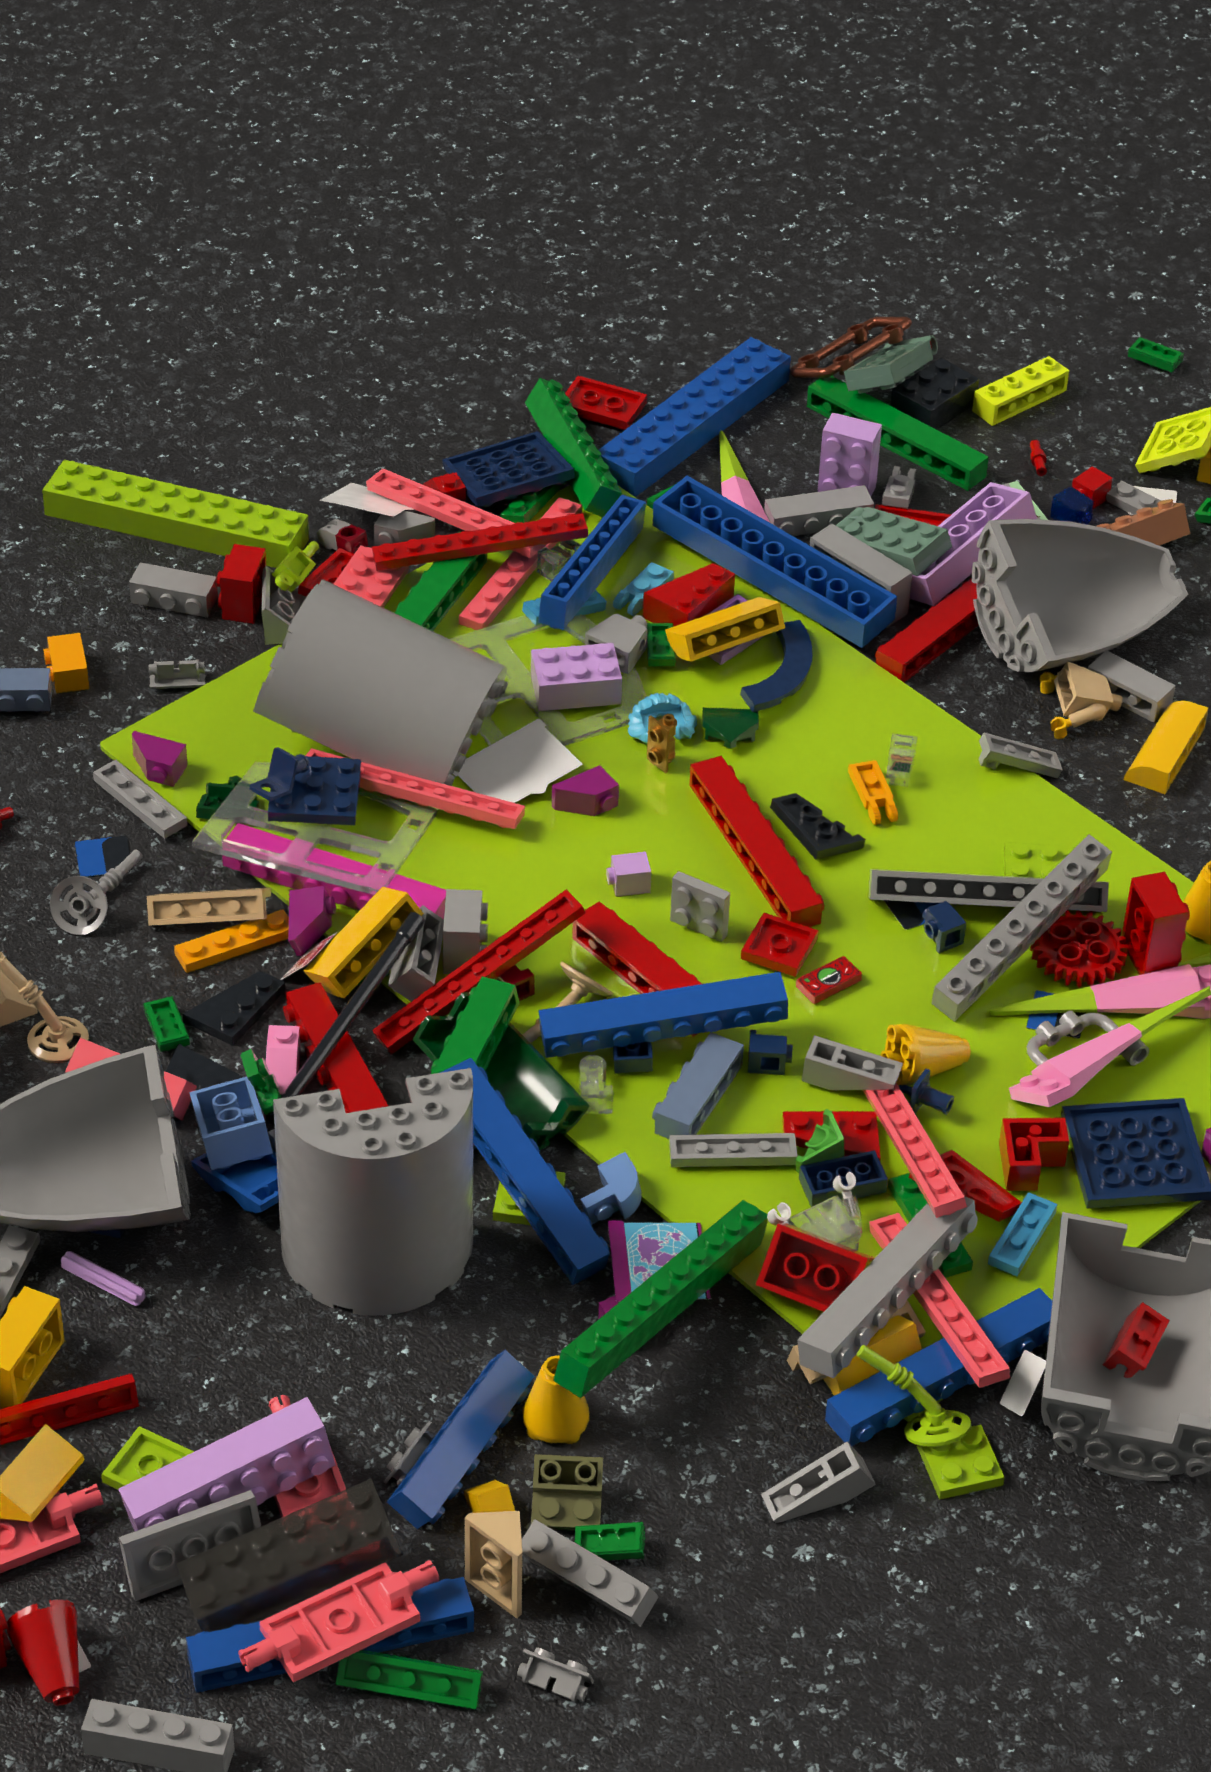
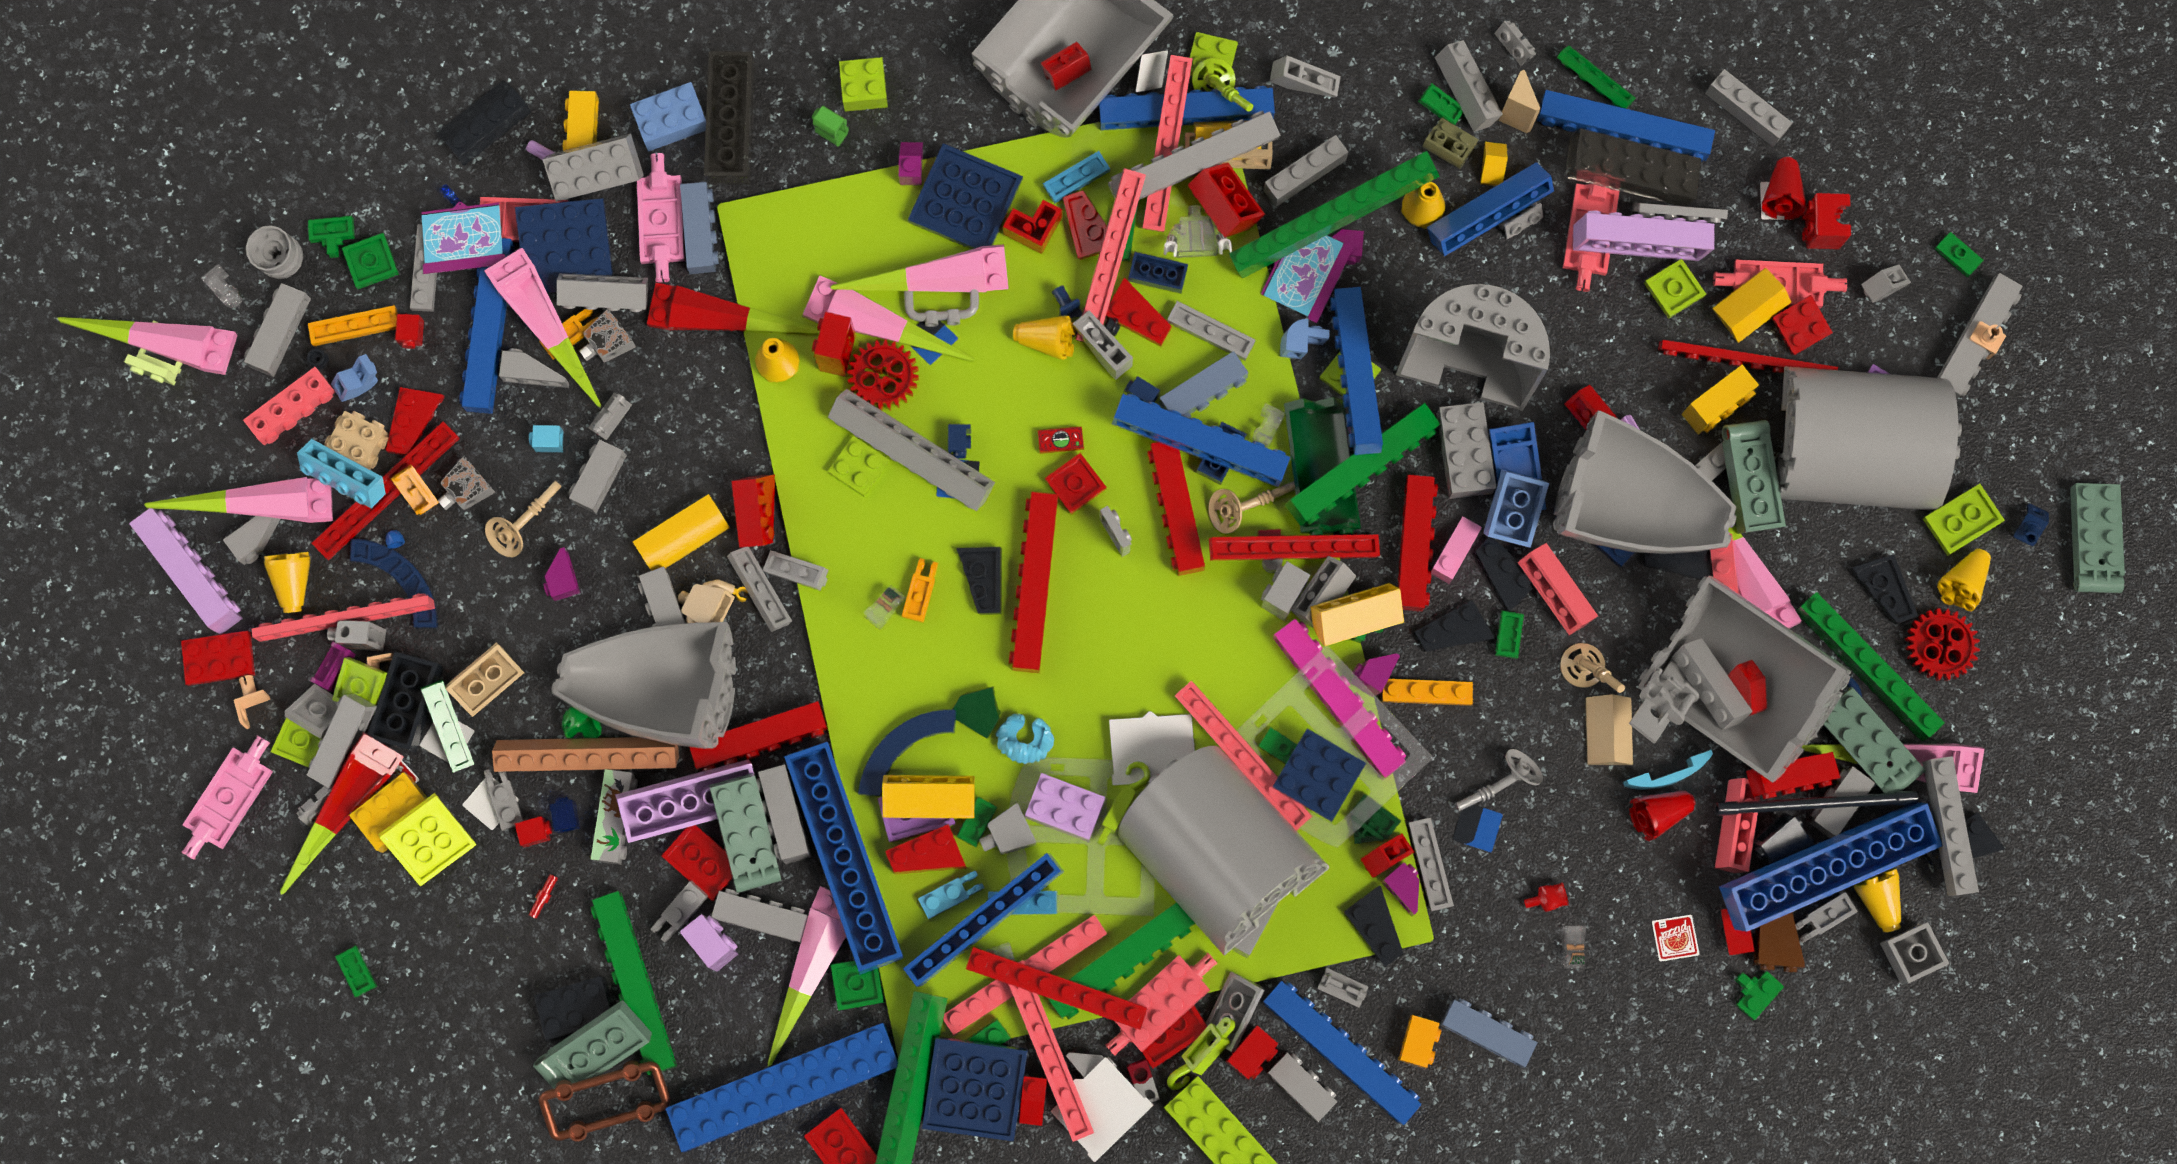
camera: 150 degrees left, 35 degrees up
(148, 626) = (1342, 1053): none -> blue brick
(171, 723) = (1375, 926): none -> black wing
(188, 1286) = (1586, 404): none -> red panel
(192, 774) = (1387, 855): none -> red slope
(207, 906) = (1439, 720): tan fence -> none
(262, 1081) = (1487, 521): green hinge -> none
(281, 774) = (1346, 779): dark blue bracket -> none
(308, 956) = (1391, 638): sticker -> none
(340, 1620) = (1627, 111): coral plate -> none
(375, 822) = (1277, 745): none -> green plate
(403, 937) = (1335, 590): black piece -> none
(517, 707) = (1123, 801): none -> lime piece
(586, 793) = (1120, 690): magenta slope -> none
(629, 874) = (1138, 597): lavender brick -> none
(660, 741) = (1044, 703): pearl gold hinge -> none
(738, 1376) = (1305, 171): none -> light grey brick
(825, 1142) = (1160, 293): bright green slope -> none
(855, 1101) = (1112, 326): none -> black plate
(1020, 390) = (500, 981): neon yellow brick -> none
(1021, 927) = (920, 389): light grey brick -> none
(1045, 734) = (759, 588): none -> light grey plate
(1111, 786) = (754, 509): none -> red wedge

